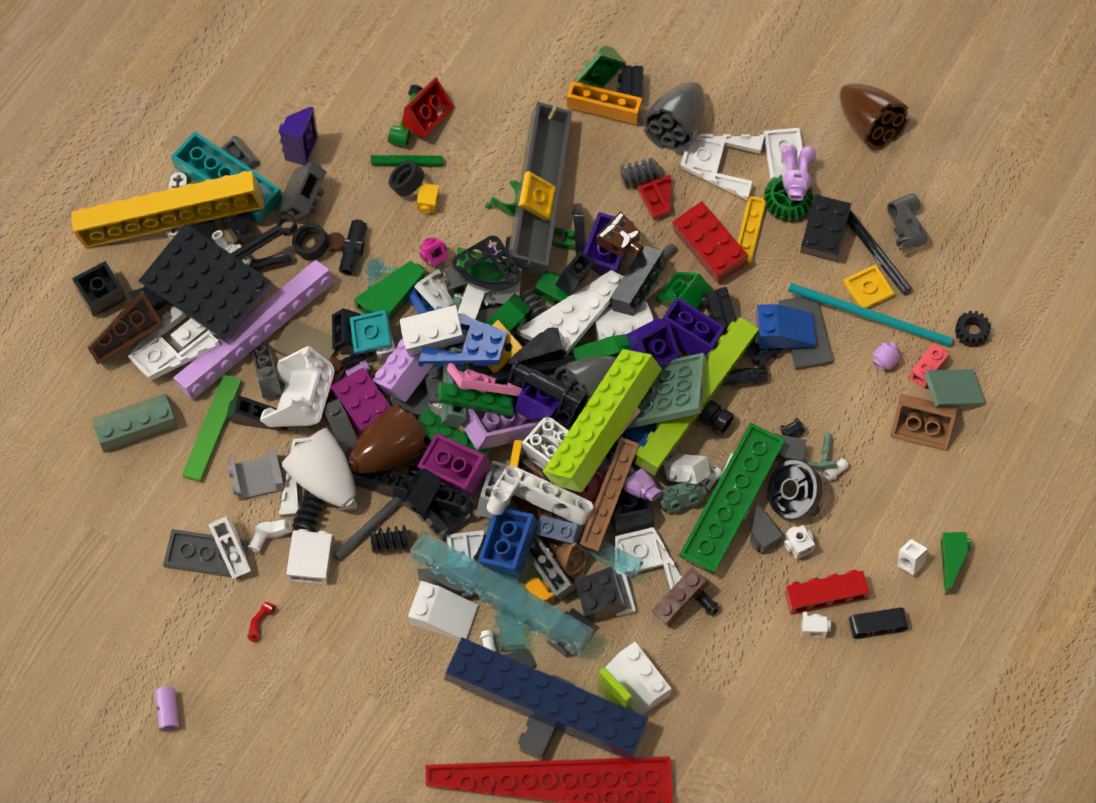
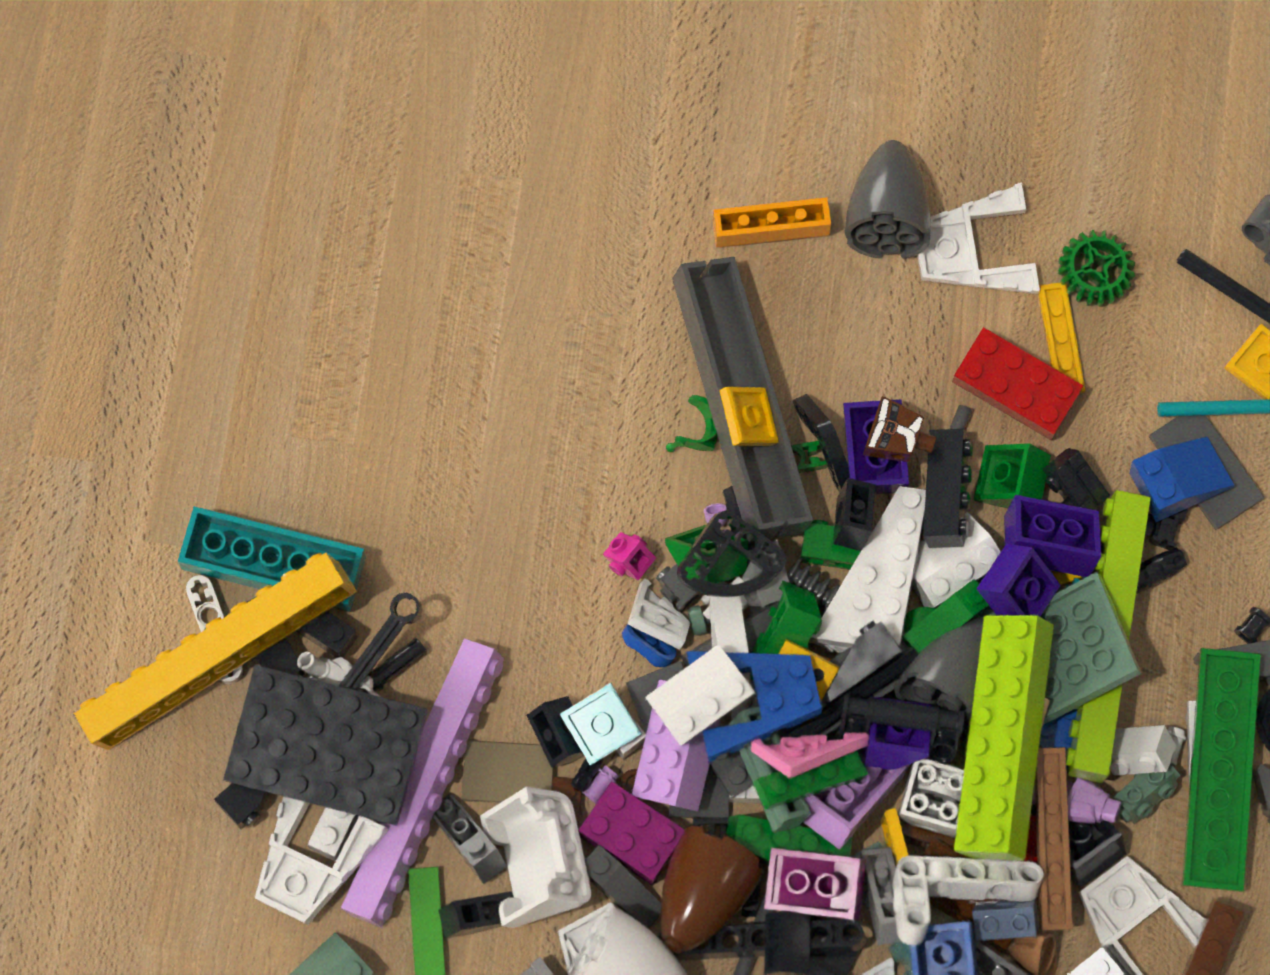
camera: 25 degrees left, 10 degrees up
(99, 288) = (165, 811): black brick -> none
(129, 326) = (237, 862): reddish brown wedge -> none
(240, 151) = (270, 507): dark grey slope -> none
(299, 136) = (352, 455): dark purple slope -> none
(301, 191) = (394, 539): dark grey piece -> none
(304, 231) = (462, 618): black tyre -> none
(336, 241) = (475, 594): reddish brown tile -> none
(353, 247) = (506, 594): black piece -> none
(375, 268) = (553, 614): clear light blue piece -> none
(392, 291) = (593, 649): green slope -> none
(396, 160) = (521, 423): green axle -> none
(398, 134) = (493, 386): green piece -> none
(411, 184) = (553, 462): black tyre -> none
(427, 109) = (521, 334): red slope -> none
(428, 198) = (581, 474): yellow brick -> none
(601, 68) = (744, 170): green slope -> none
(616, 559) = (1100, 926): clear light blue tile -> none
(631, 81) = (795, 174): black brick -> none
(639, 171) = (868, 310): dark grey piece -> none
(657, 196) = (909, 340): red wing -> none
(707, 603) = (1250, 938): black pin -> none
(716, 417) = (1148, 651): black wheel -> none
(774, 142) = (1060, 199): white tile -> none
(794, 181) = (1103, 246): lavender piece -> none
(825, 228) = (1172, 297): black brick -> none
(873, 114) = (1160, 90): reddish brown cylinder -> none

